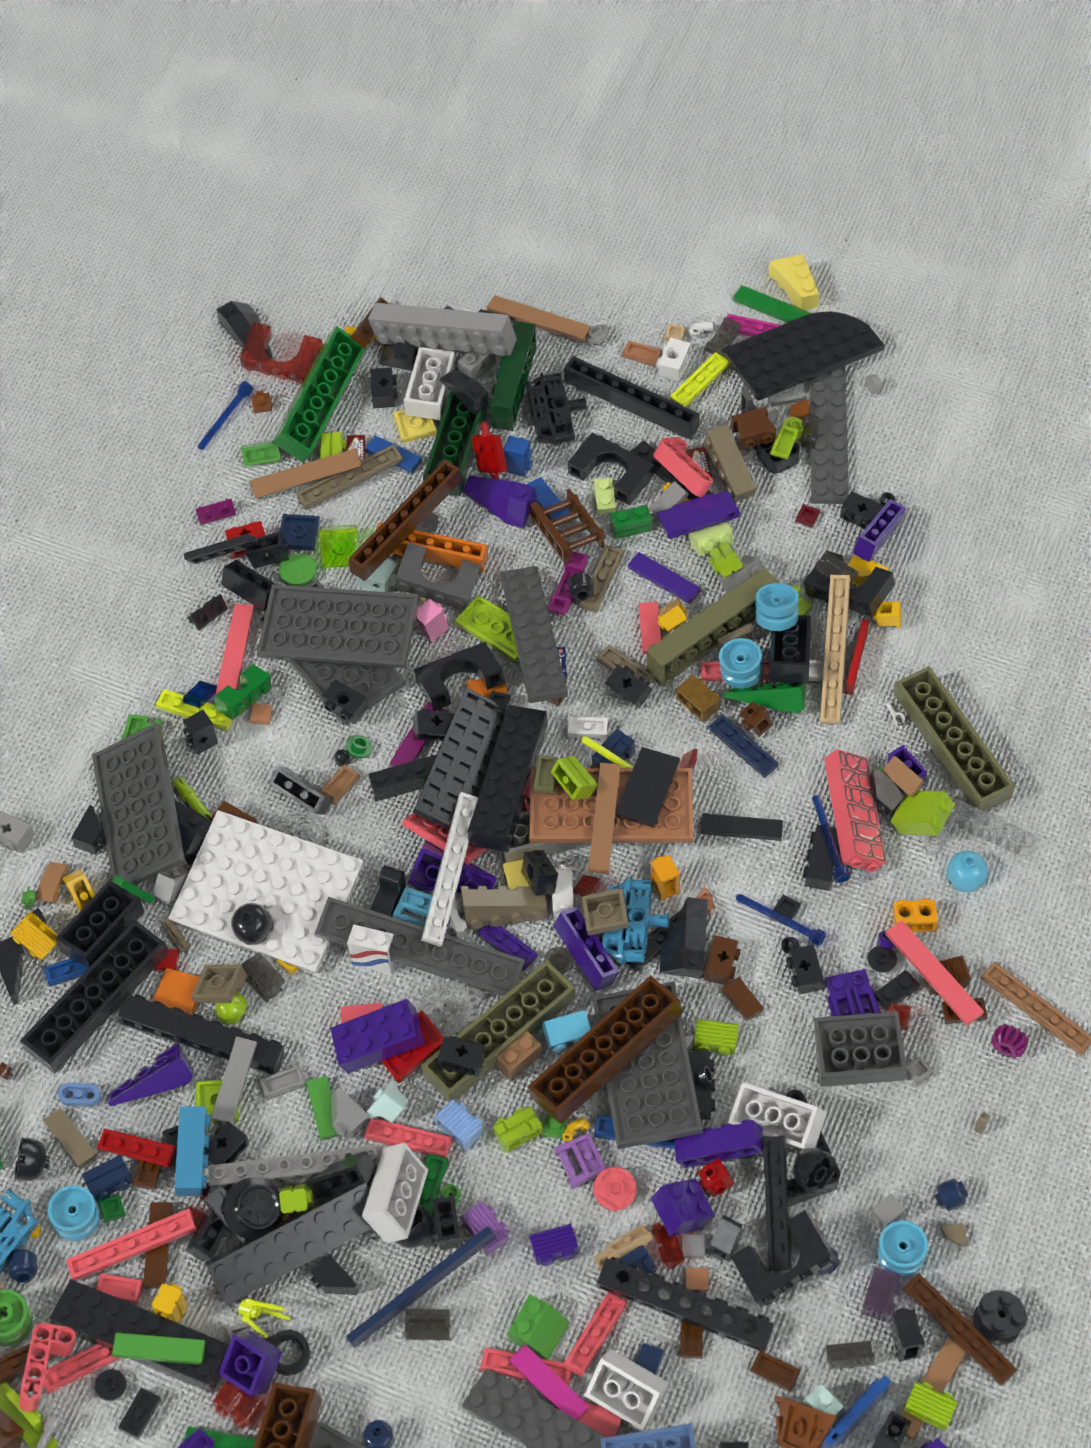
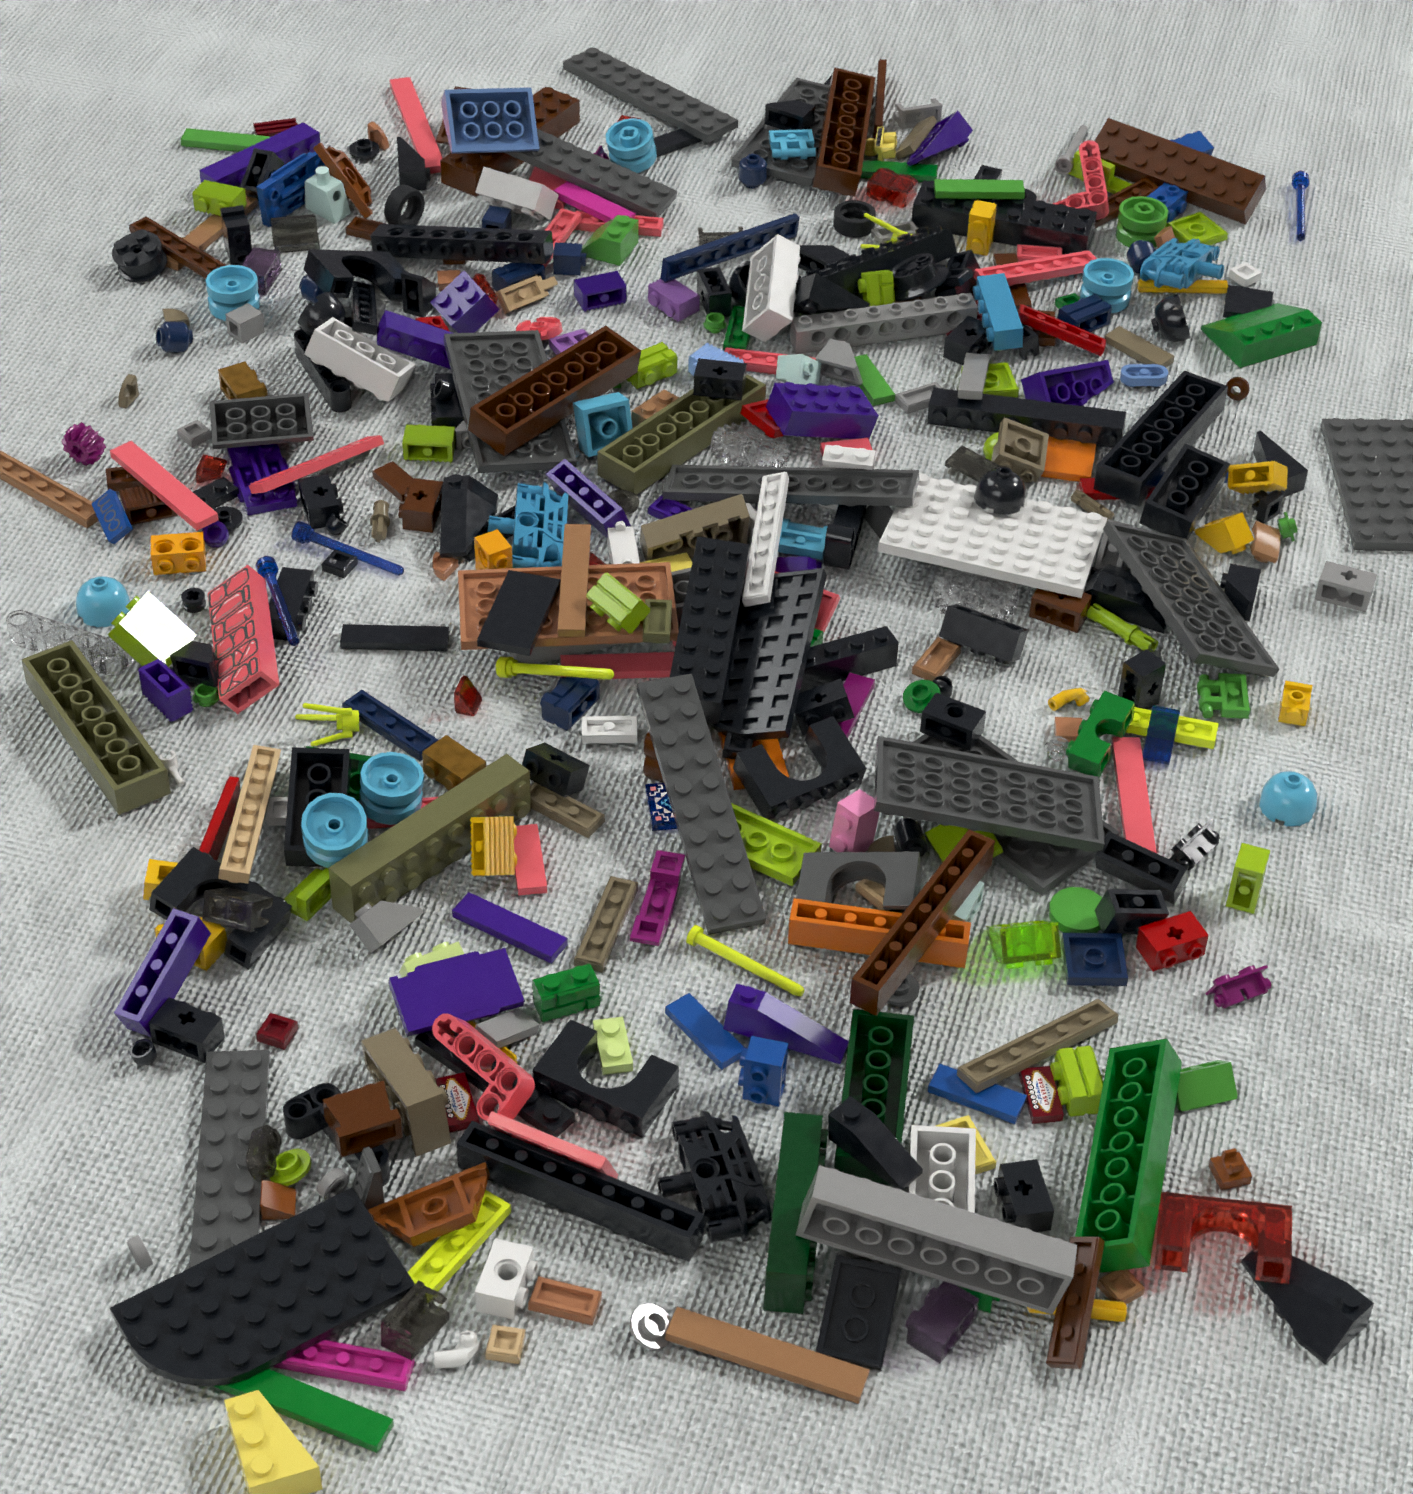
camera: 170 degrees right, 15 degrees down
(94, 722) = (1295, 703): none -> yellow brick
(129, 644) = (1289, 798): none -> medium azure cylinder
(133, 889) = (1162, 518): green tile -> none
(184, 569) = (1247, 878): none -> lime brick
(220, 549) = (1201, 897): black tile -> none
(244, 390) = (1268, 1184): clear blue piece -> none
(250, 1363) = (886, 192): dark purple brick -> none
(252, 742) = (1067, 696): none -> yellow arm
(306, 473) = (1109, 1031): medium nougat tile -> none
(489, 452) = (804, 1052): red plate -> none
(539, 872) = (652, 542): black brick -> none
(544, 561) = (696, 937): none -> neon yellow bar
(556, 537) = (682, 948): reddish brown fence -> none
(580, 586) = (636, 882): black head -> none
(580, 1297) = (568, 259): none -> dark blue brick
(605, 911) = (565, 504): dark tan plate -> none
(643, 416) = (551, 1143): none -> coral tile
(711, 392) = (434, 1208): none -> dark orange wing
(724, 559) = (413, 924): lime brick -> none
(741, 1380) = (395, 203): none -> black tyre
(755, 949) = (380, 520): none -> dark tan axle
(756, 719) = (371, 736): reddish brown brick -> none
(774, 744) = (345, 718): none -> neon yellow plant
(784, 442) = (307, 1107): lime tile -> none
(809, 1006) = (316, 464): none -> coral tile
(881, 1118) = (240, 382): none -> pearl gold brick
(897, 866) = (193, 600): none -> black bush
(903, 776) = (172, 661): medium nougat tile -> none
(973, 956) = (112, 516): none -> blue tile

